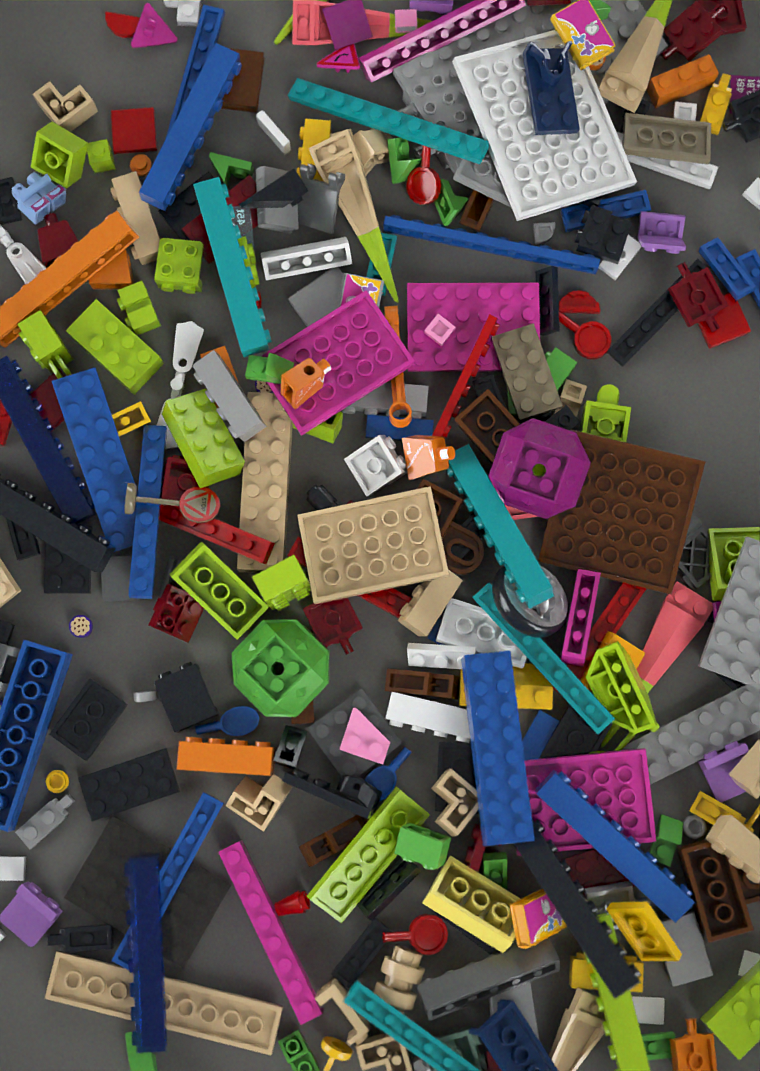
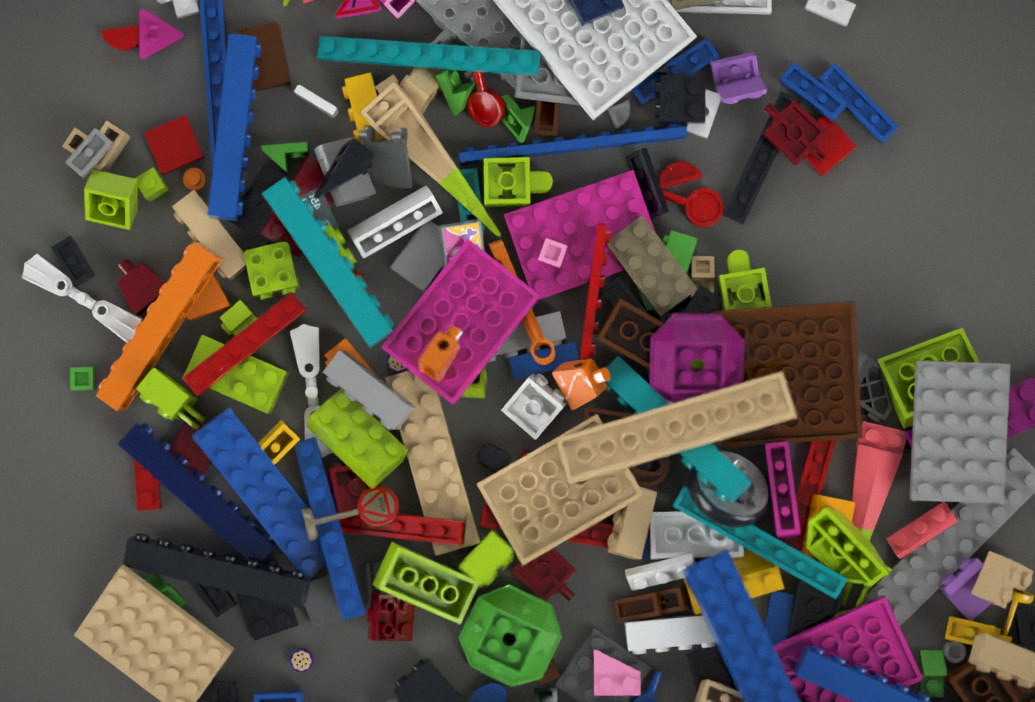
camera: 20 degrees left, 5 degrees up
(39, 197) = (107, 248): light blue hips -> none
(54, 105) = (89, 153): none -> light grey plate
(130, 319) = (244, 344): none -> red plate
(267, 368) = (400, 351): bright green slope -> none
(423, 257) = (511, 182): none -> lime brick
(500, 520) = (676, 427): none -> tan plate
(700, 700) = (922, 530): none -> coral plate

